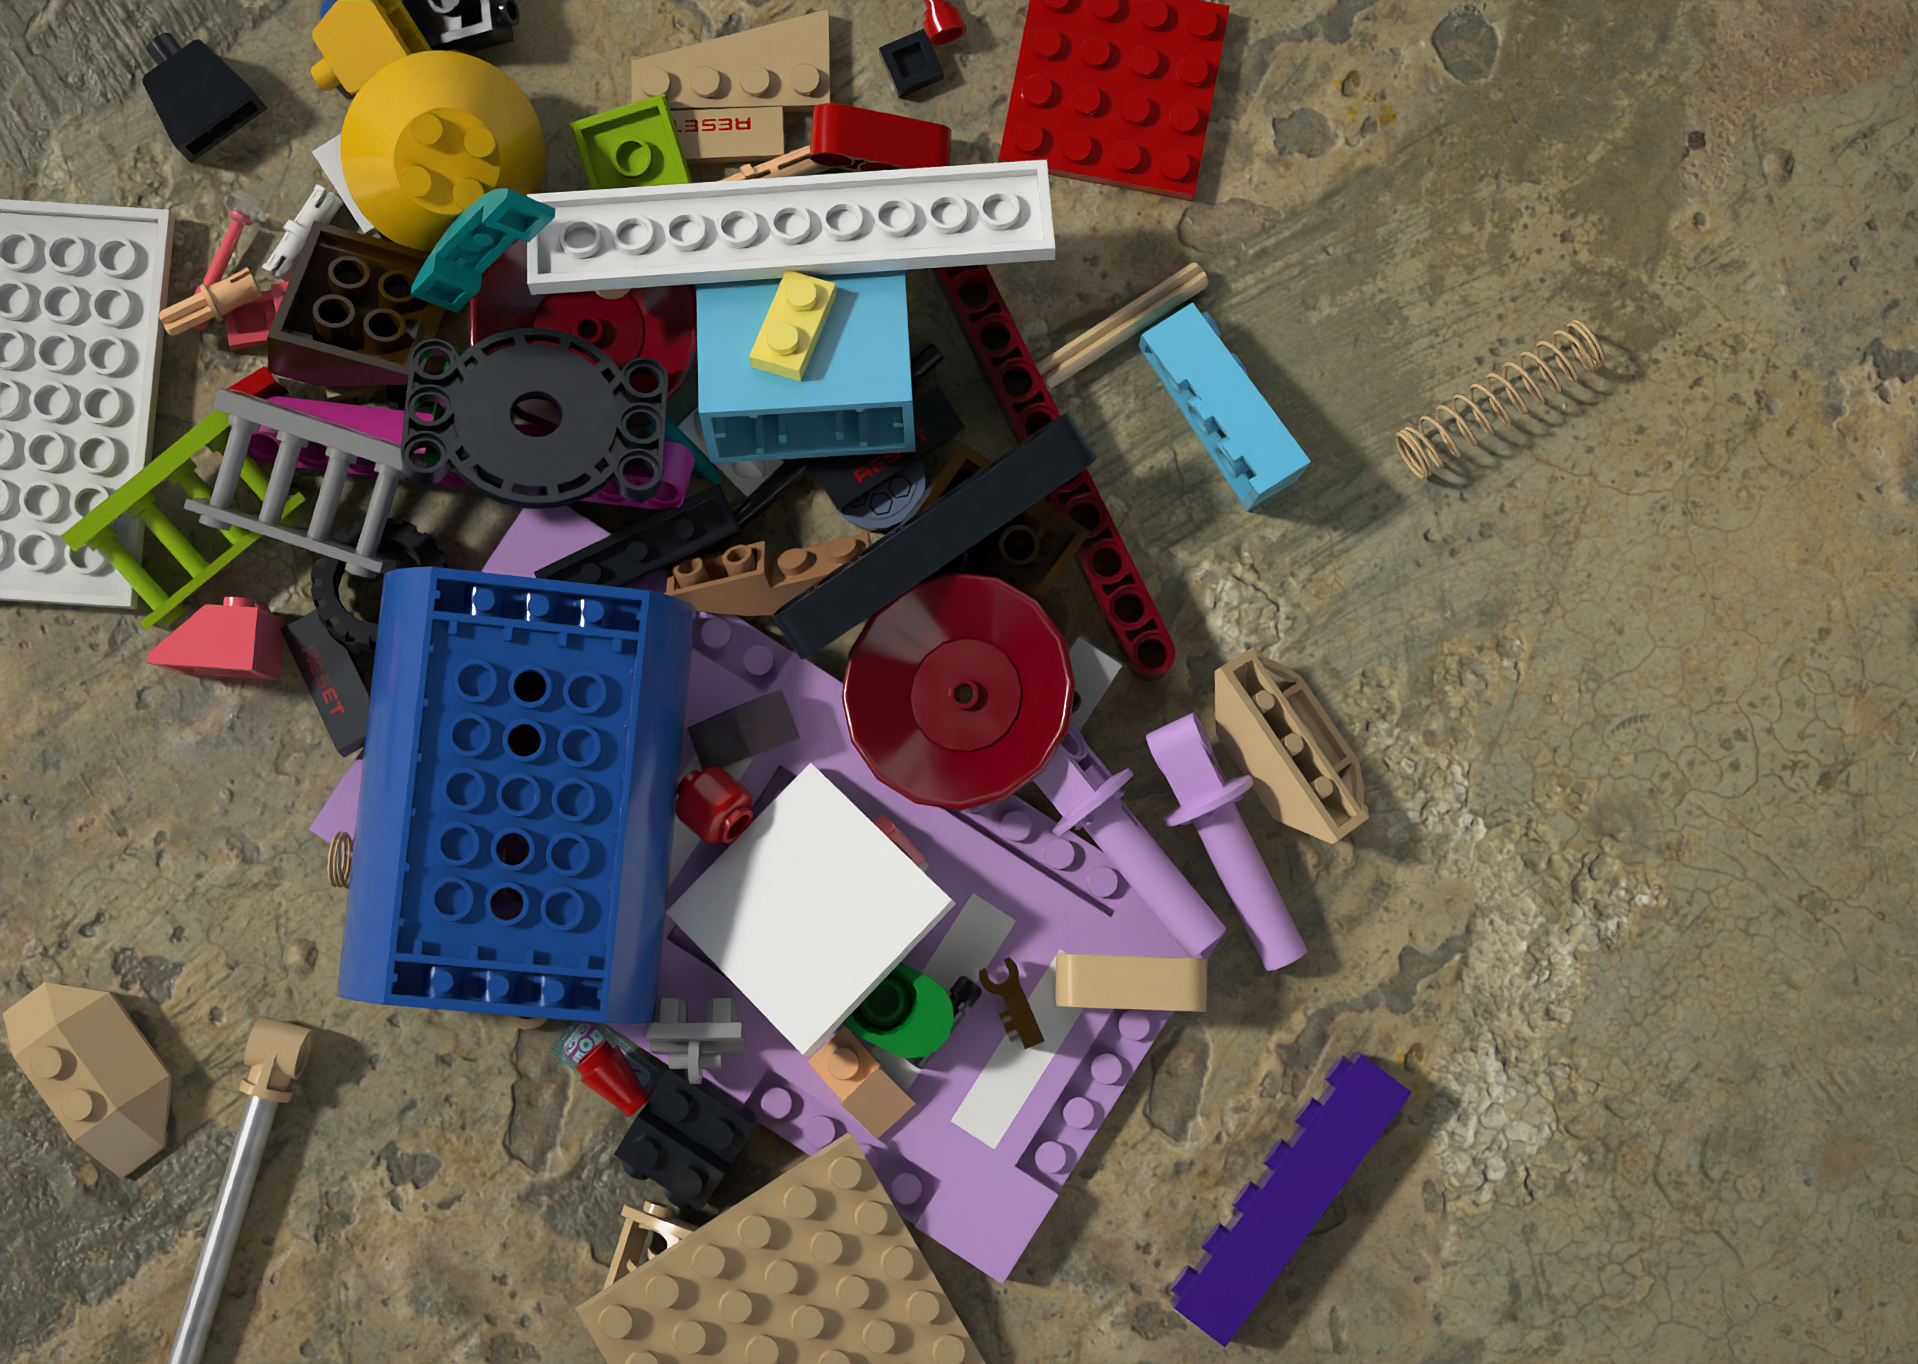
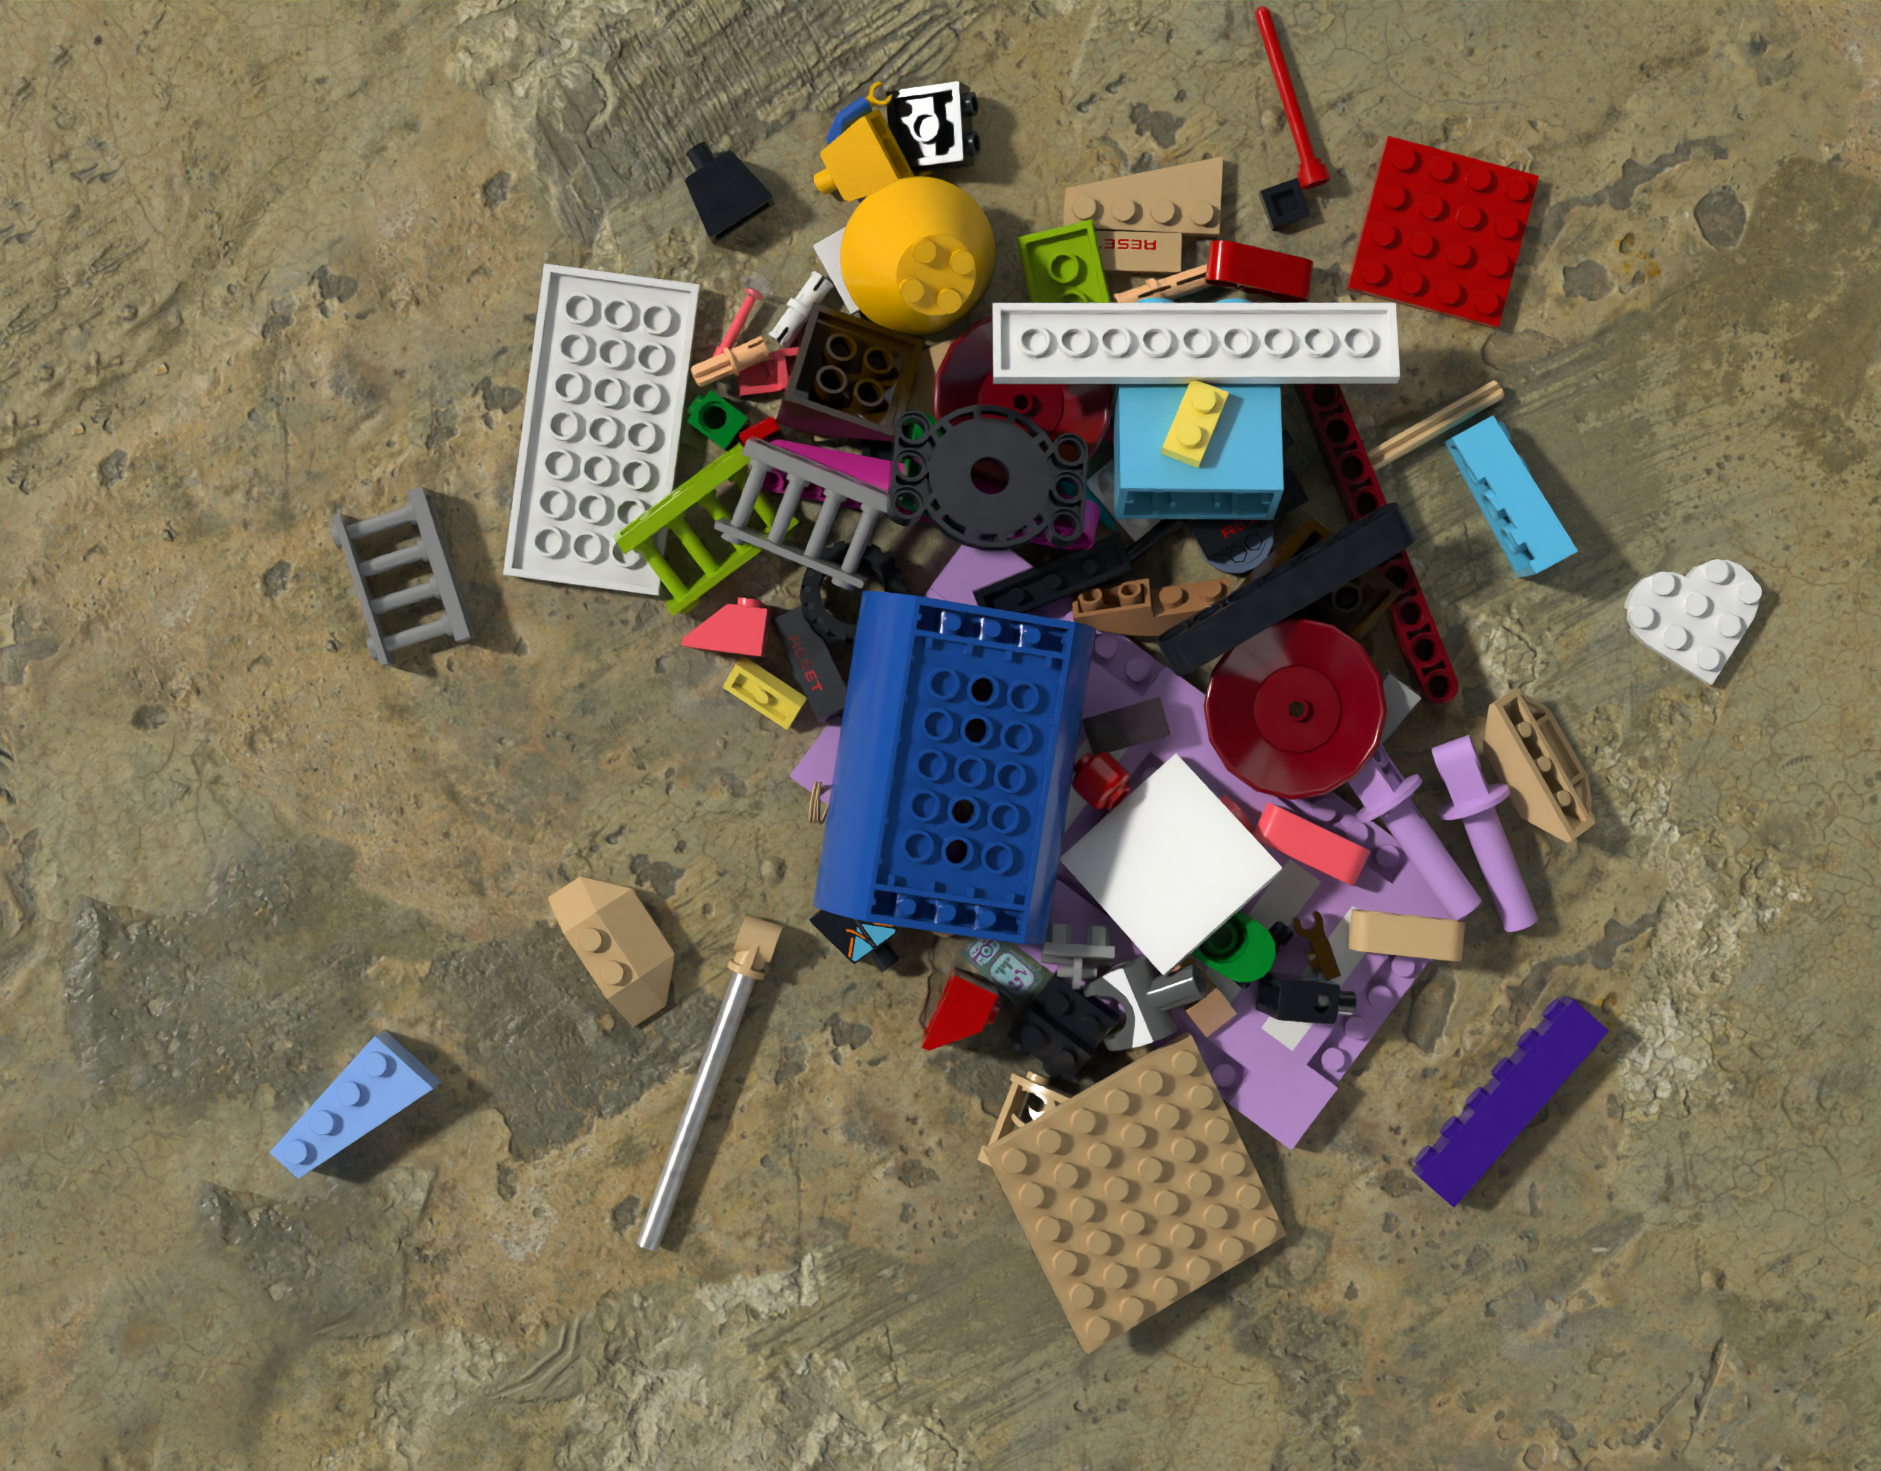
camera: 10 degrees right, 5 degrees up
(179, 365) = (728, 434): none -> green brick
(274, 723) = (764, 692): none -> light yellow plate
(411, 1035) = (858, 938): none -> black torso
(474, 242) = (928, 350): teal slope -> none
(547, 1120) = (961, 1010): none -> red slope
(612, 1077) = (1009, 978): red cone -> none
(790, 1091) = (1146, 999): none -> dark grey connector
(980, 1076) = (1303, 998): none -> black torso
(996, 870) = (1311, 844): none -> coral beam
(1405, 438) = (1645, 529): tan piece -> none
(1478, 545) = (1694, 616): none -> white plate

